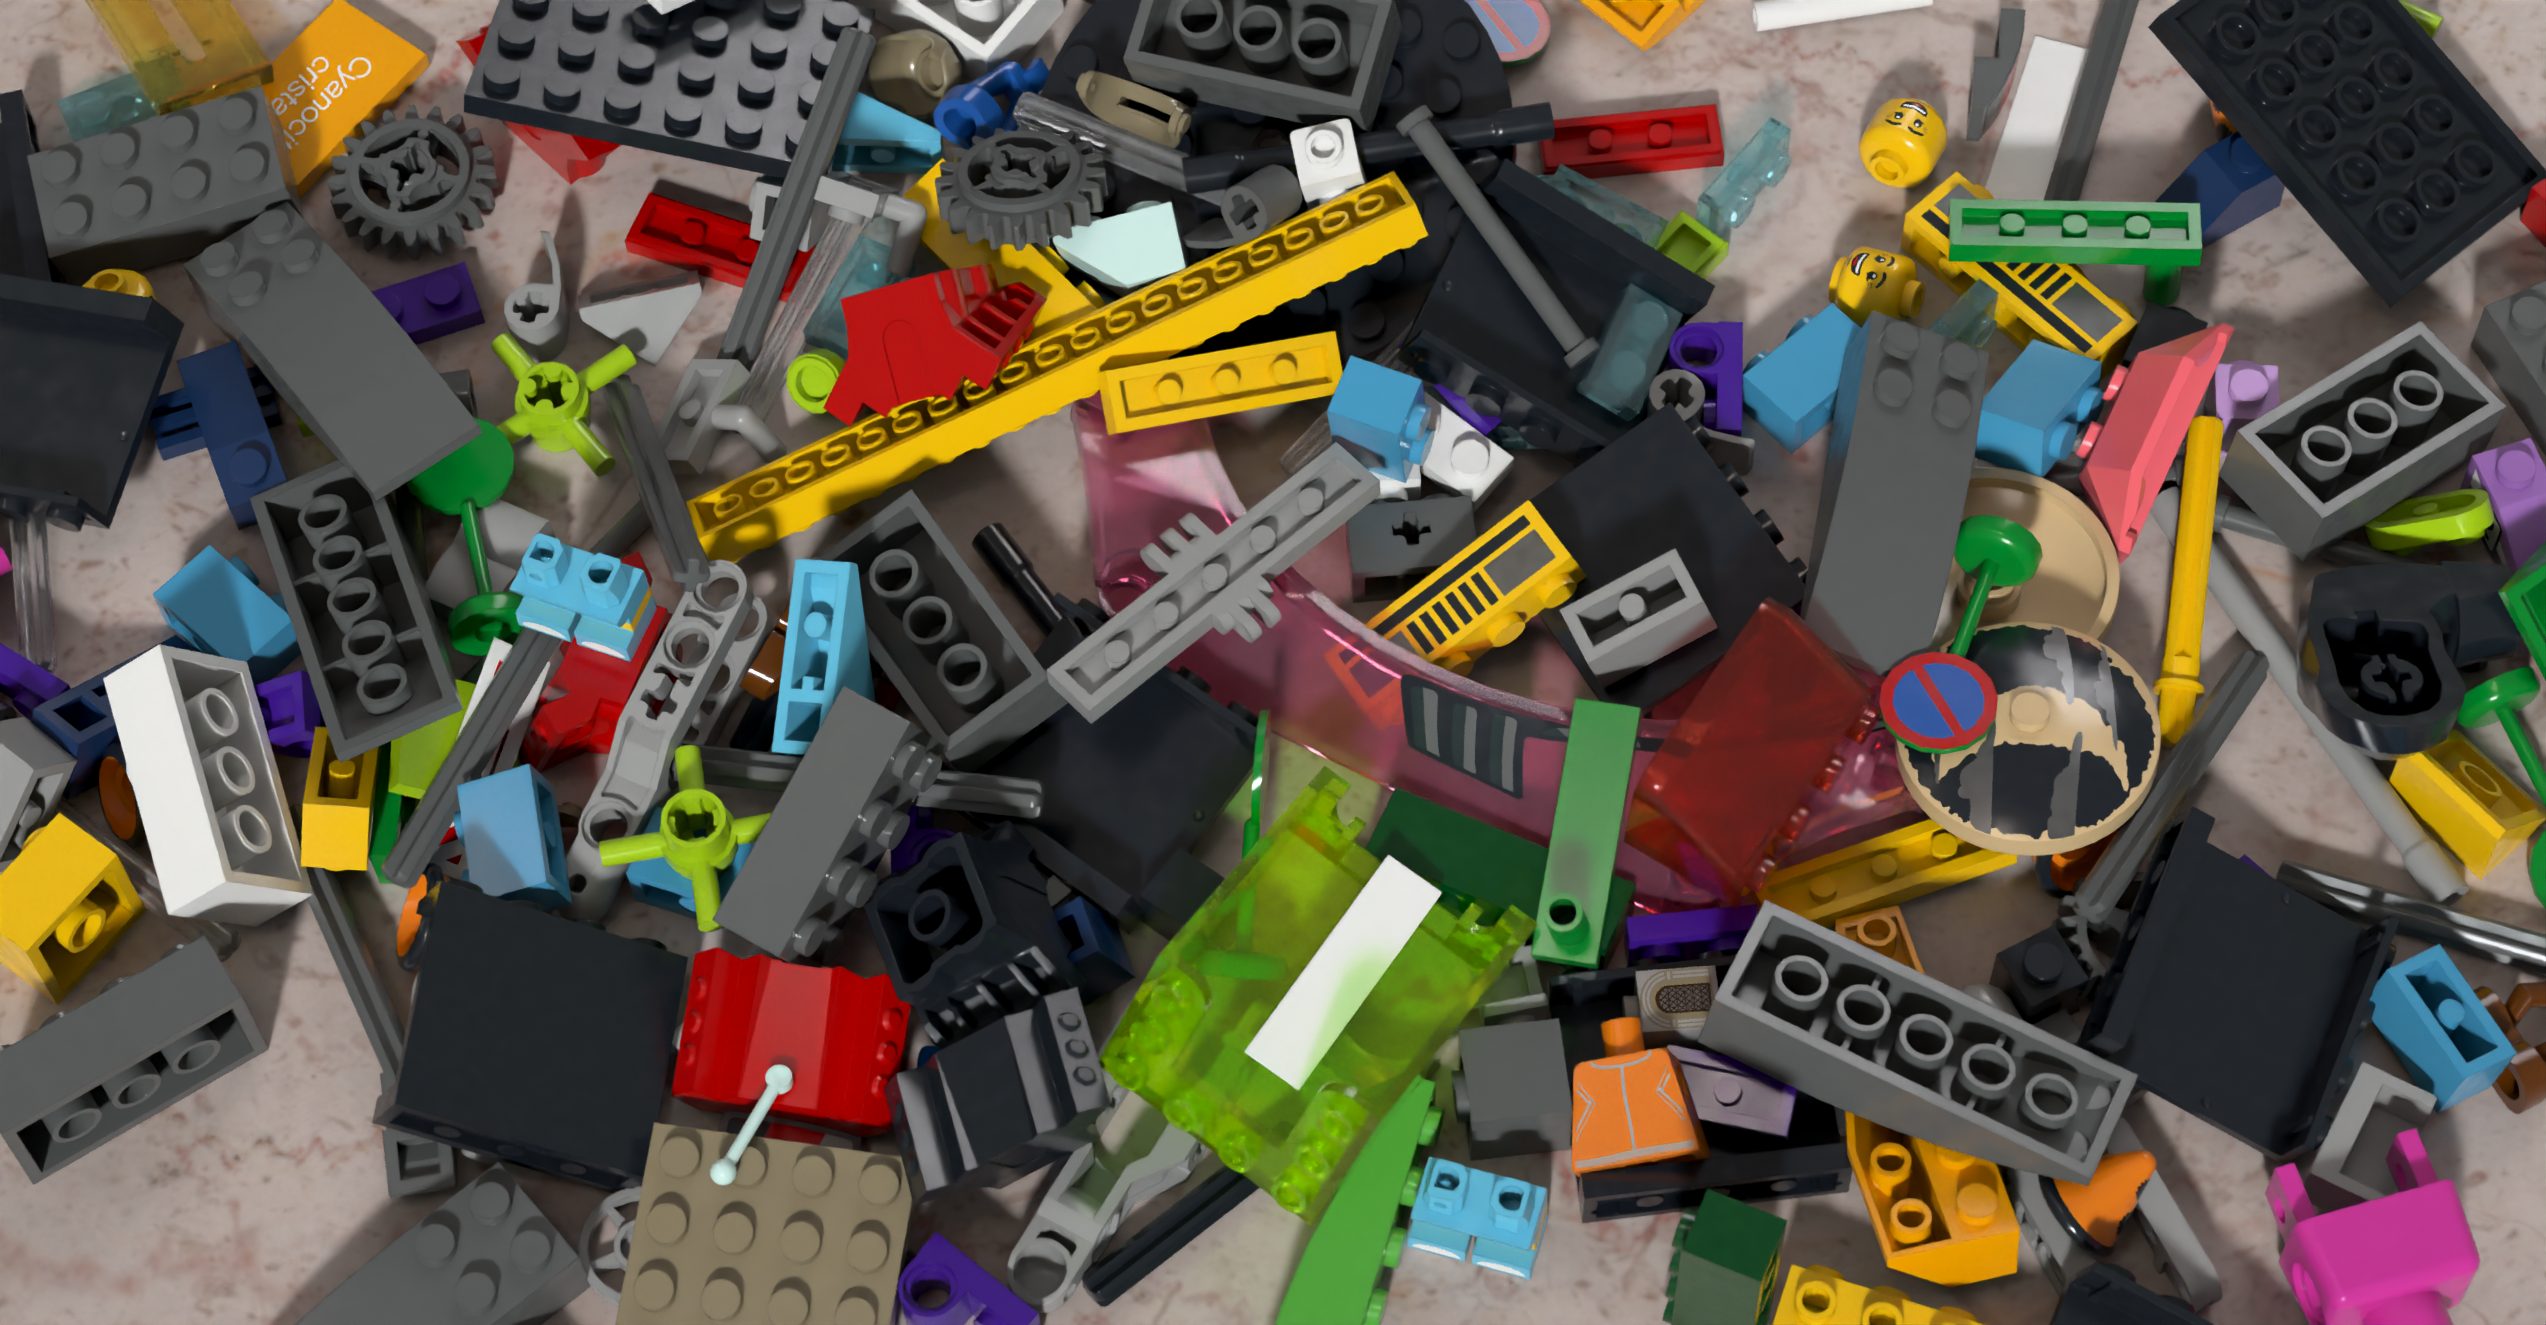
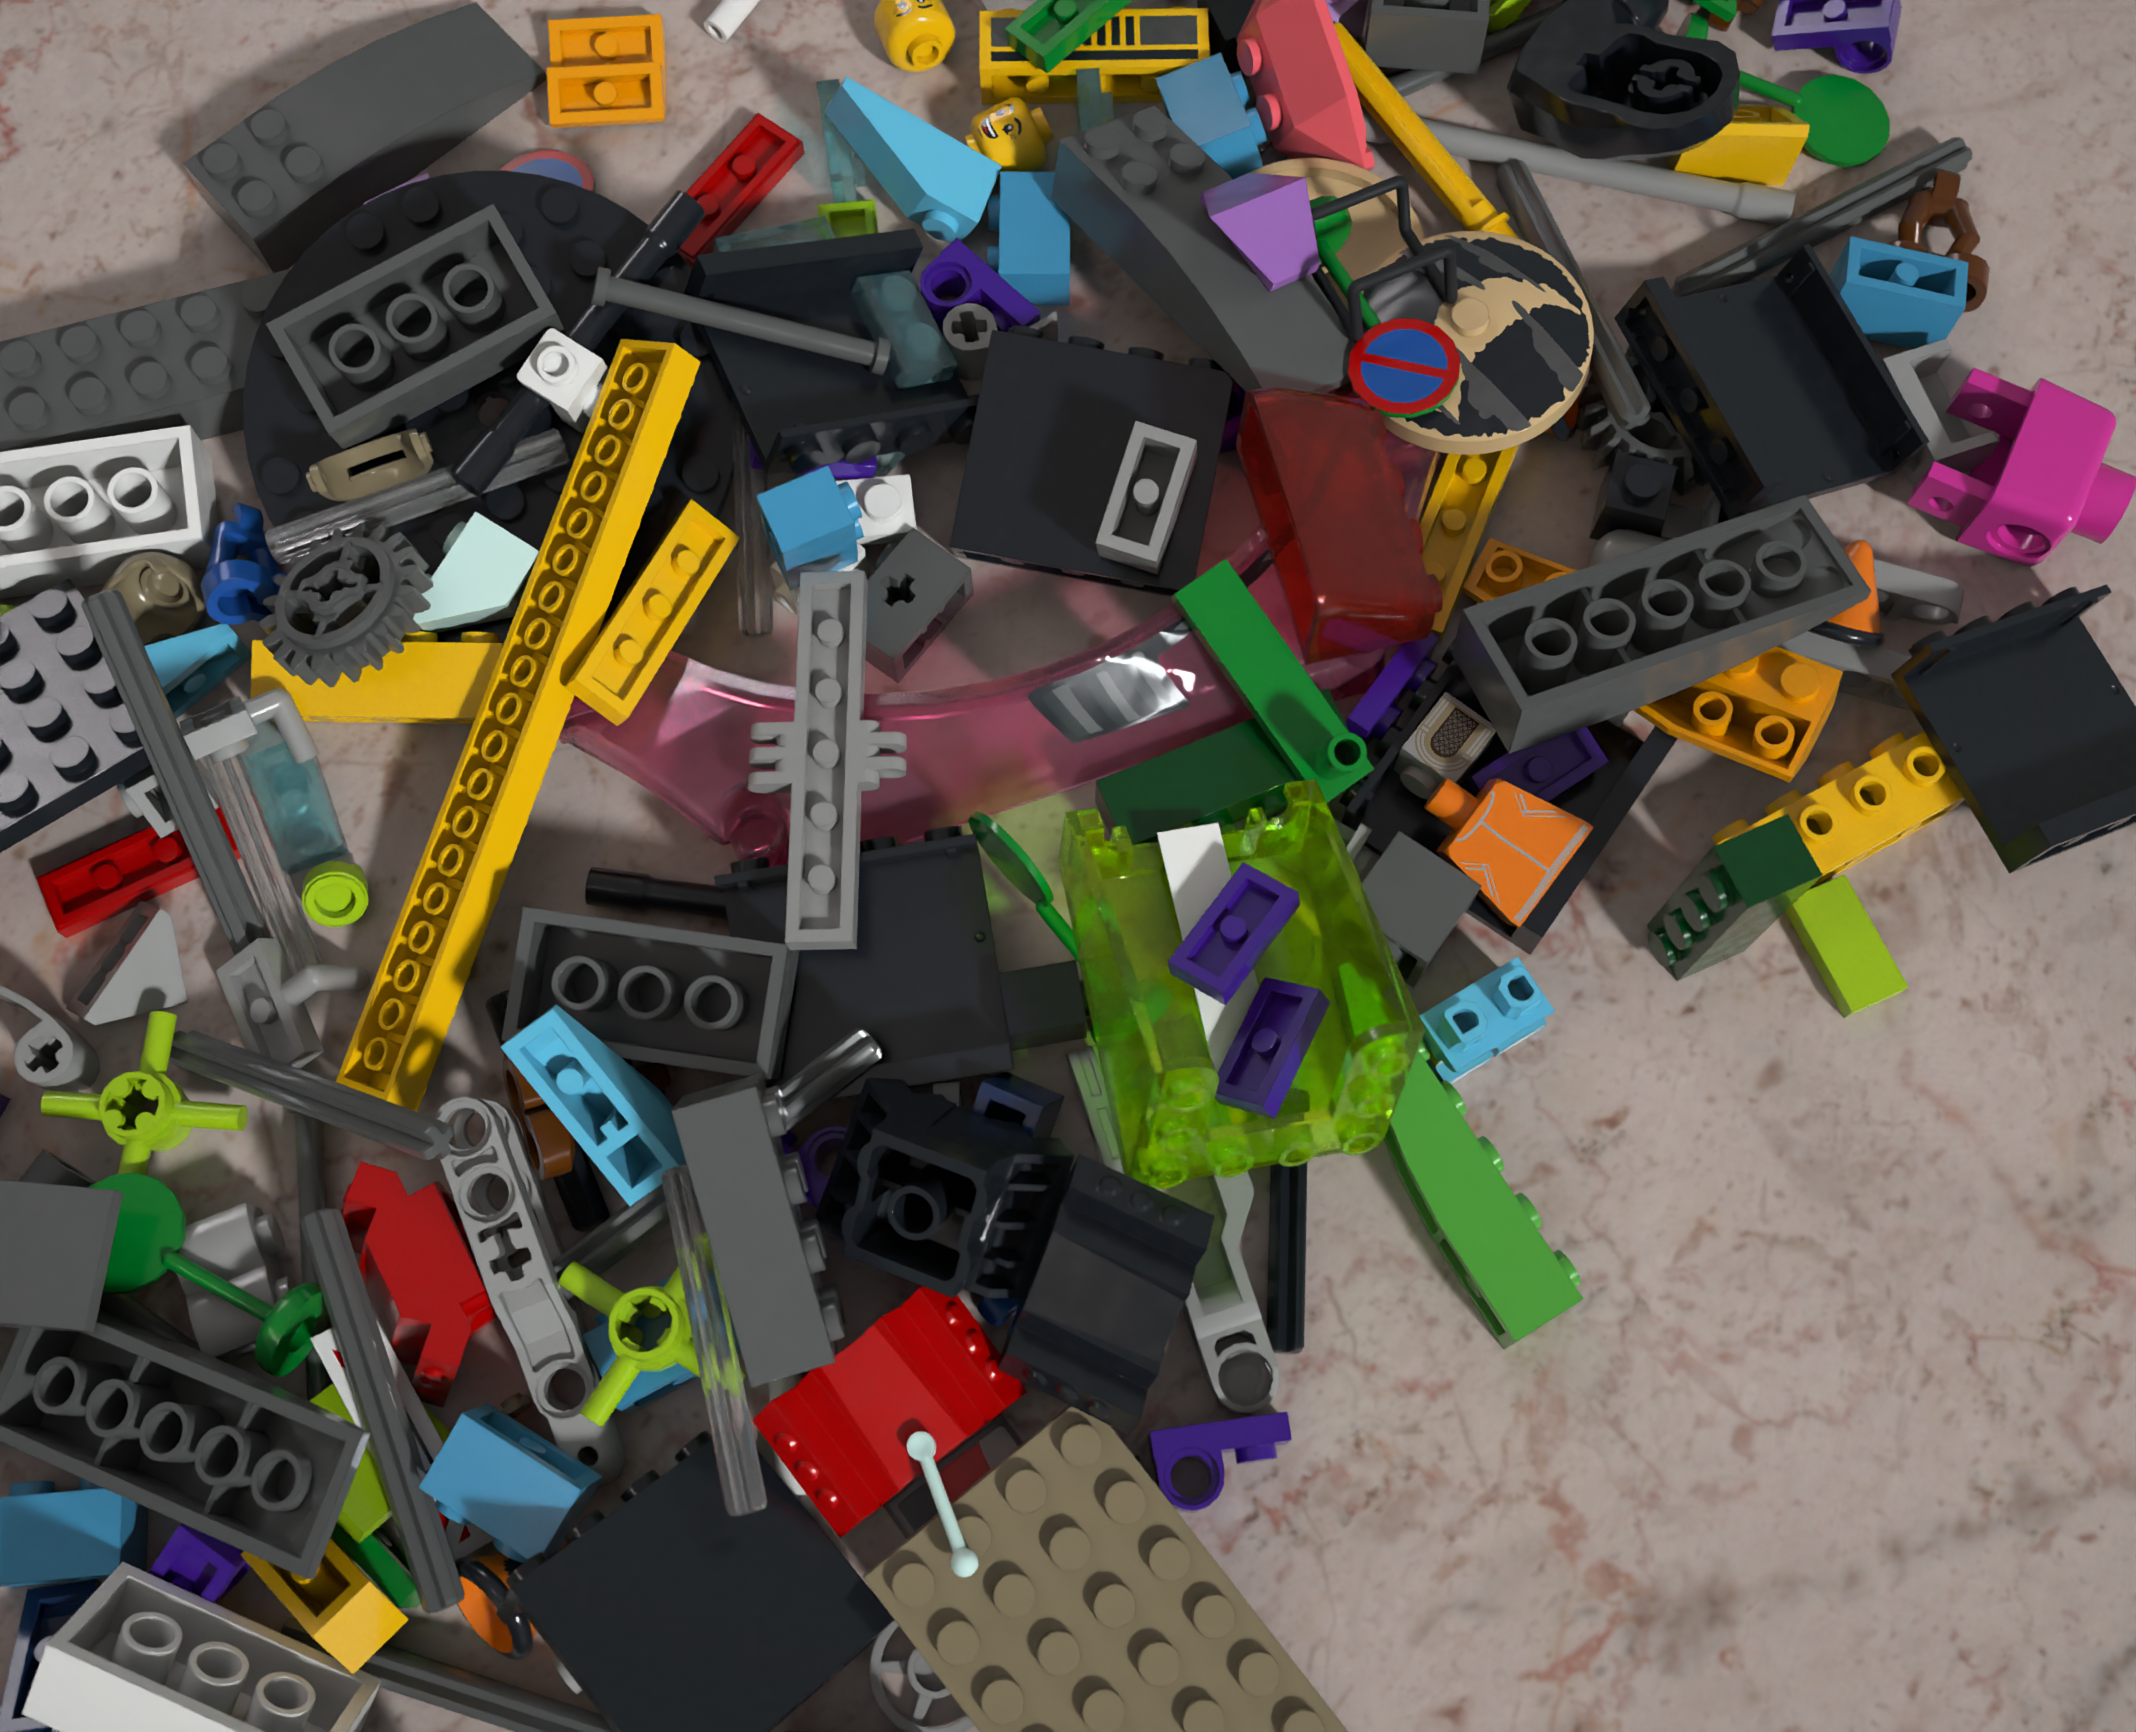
camera: 50 degrees left, 10 degrees up
(583, 597) = (342, 1250): medium azure hips -> none
(699, 905) = (714, 1349): none -> clear axle
(930, 338) = (403, 781): red slope -> none
(1250, 209) = (547, 462): dark grey panel -> none
(1294, 1064) = (1270, 1046): none -> dark purple plate
(1357, 966) = (1234, 933): none -> dark purple plate
(1483, 593) = (1007, 586): yellow brick -> none
(1778, 255) = (919, 166): none -> medium azure slope
(1935, 500) = (1268, 225): none -> medium lavender slope
(2042, 653) = (1444, 284): none -> black piece

